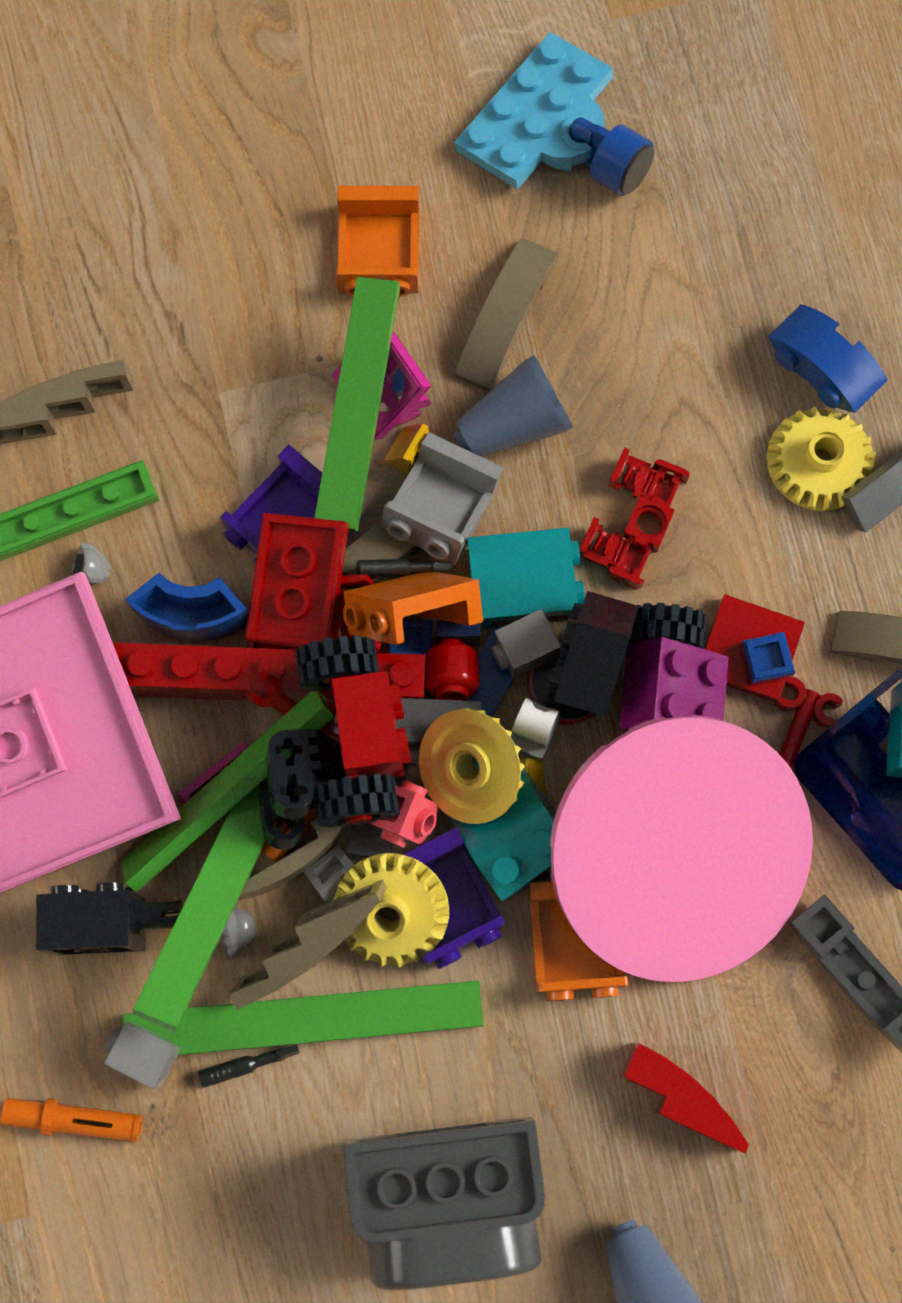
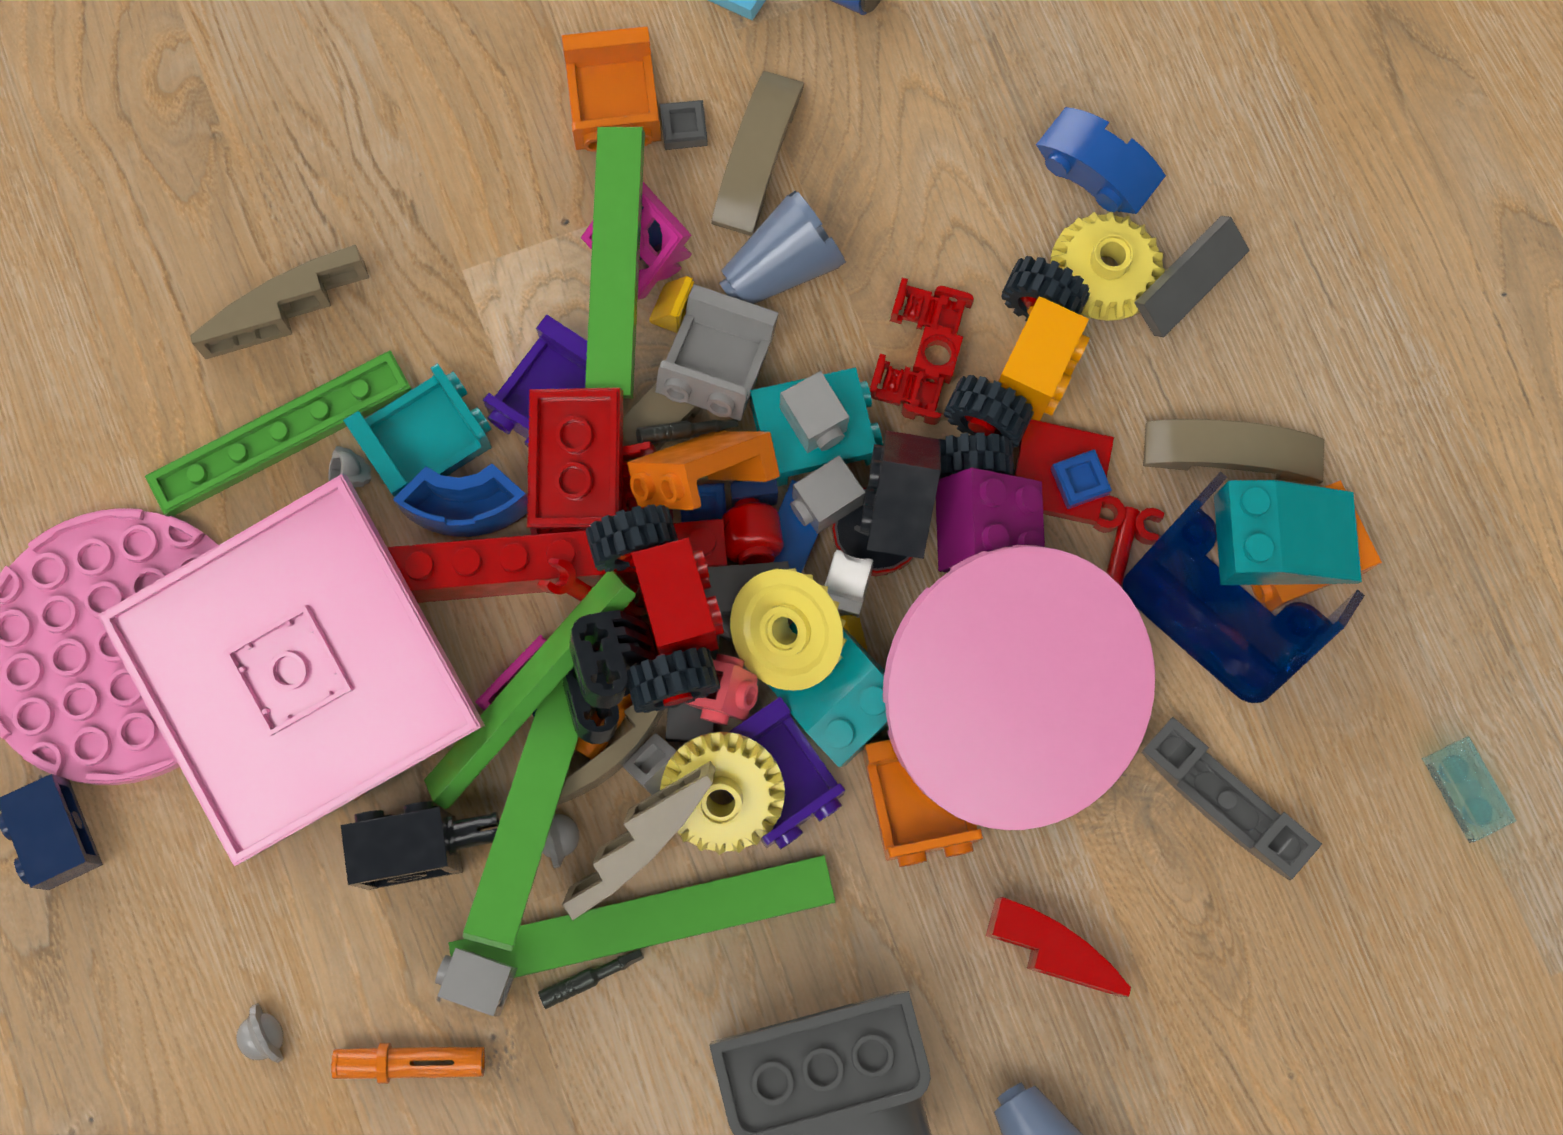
camera: 15 degrees left, 0 degrees up
(161, 538) = (420, 430): none -> teal panel
(440, 280) = (683, 125): none -> dark grey tile
(523, 566) = (814, 413): none -> light grey brick
(738, 547) = (1040, 360): none -> brick

